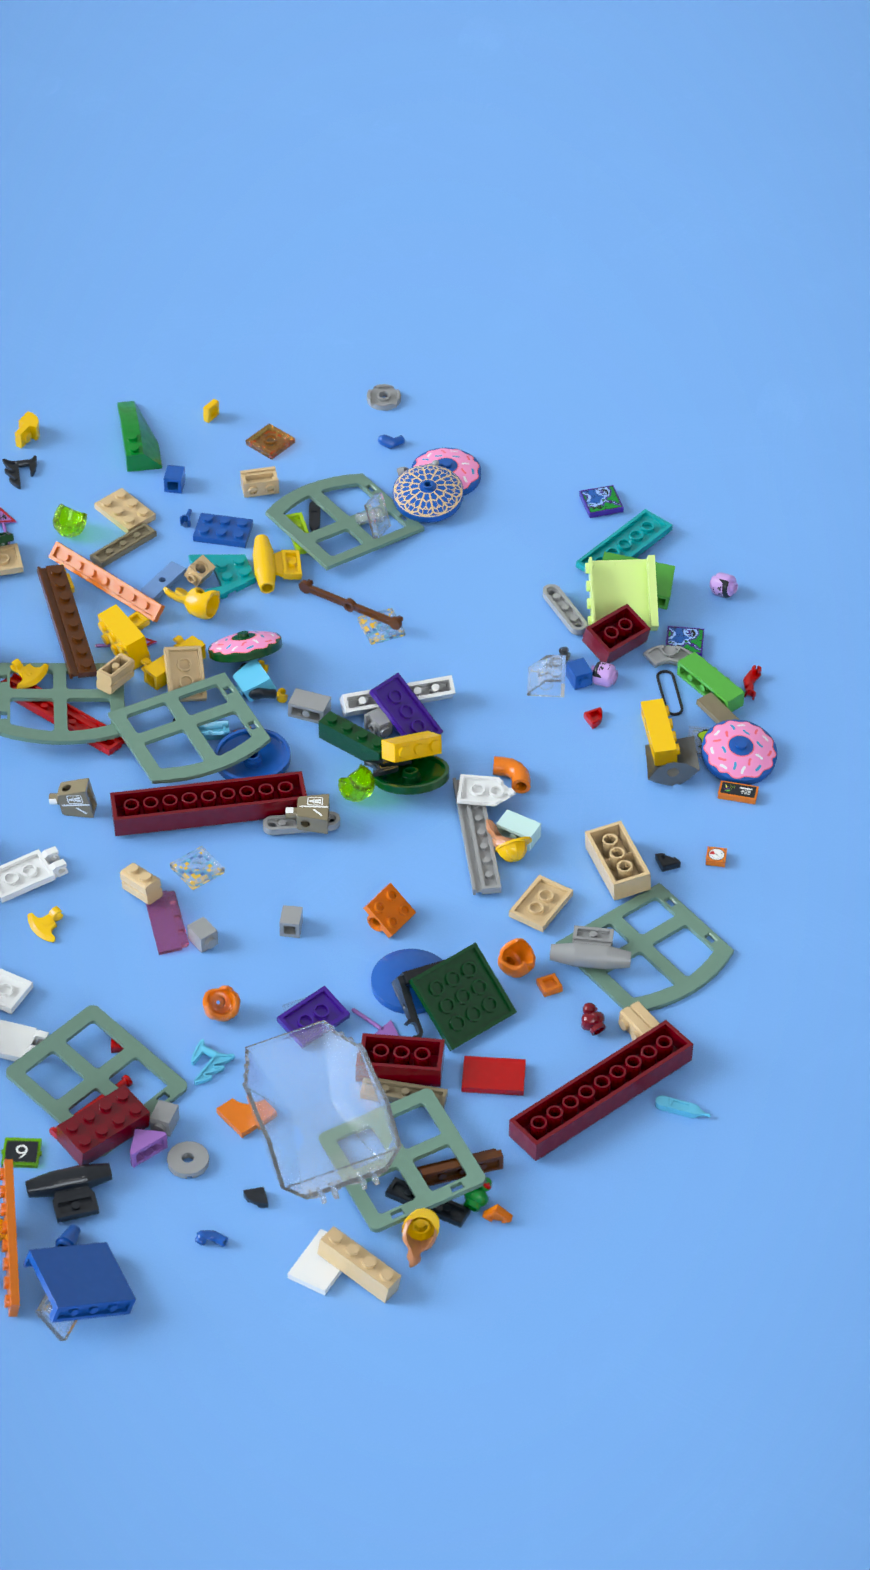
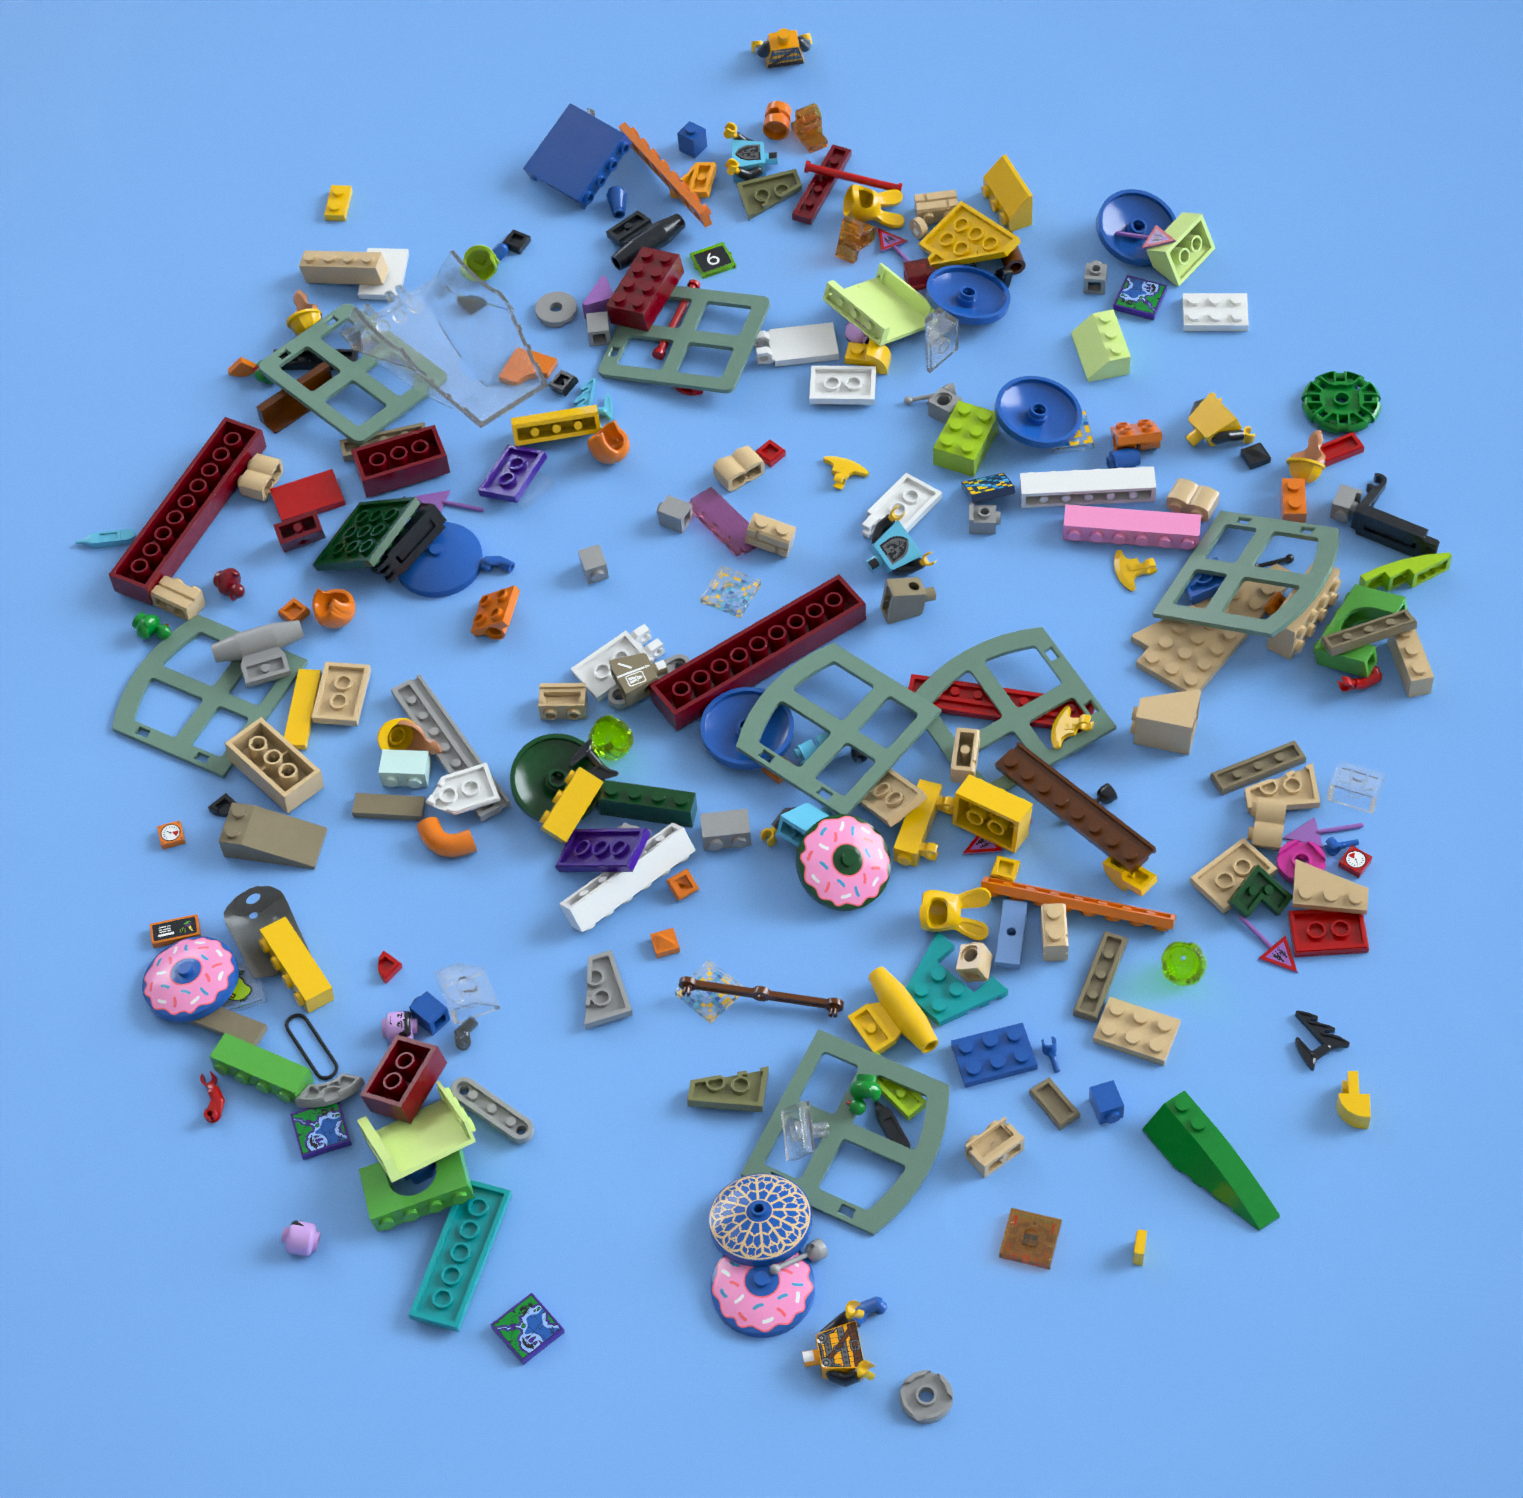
camera: 160 degrees right, 10 degrees up
(36, 635) = (1106, 794): none -> black hinge
(56, 833) = (894, 548): none -> torso
(93, 960) = (771, 453): none -> red tile
(128, 950) = (738, 468): none -> tan brick
(136, 568) = (1054, 932): none -> tan brick
(183, 1244) = (517, 241): none -> black tile
(205, 495) = (1054, 1103): none -> dark tan tile
(223, 1084) = (563, 383): none -> black tile
(230, 1222) = (481, 261): none -> lime cap
(238, 1035) = (555, 425): none -> yellow brick
(315, 847) = (596, 668): none -> white tile
(322, 519) = (863, 1088): none -> green animal
(326, 1359) = (338, 203): none -> yellow plate
(357, 686) = (682, 885): none -> orange tile
(366, 959) = (499, 561): none -> blue arm
(374, 832) = (563, 701): none -> tan hinge
(394, 662) = (665, 943): none -> orange tile
(402, 565) = (735, 1092): none -> olive wing
(420, 423) = (840, 1350): none -> torso
(452, 646) = (605, 991): none -> light grey wing
(515, 1033) = (299, 531): none -> dark red brick
(523, 1098) = (260, 477): none -> tan brick
(546, 816) = (389, 806): none -> dark tan tile
(576, 907) = (302, 707): none -> yellow tile
(645, 823) = (270, 837): none -> dark tan slope
(674, 1010) = (149, 625): none -> green animal

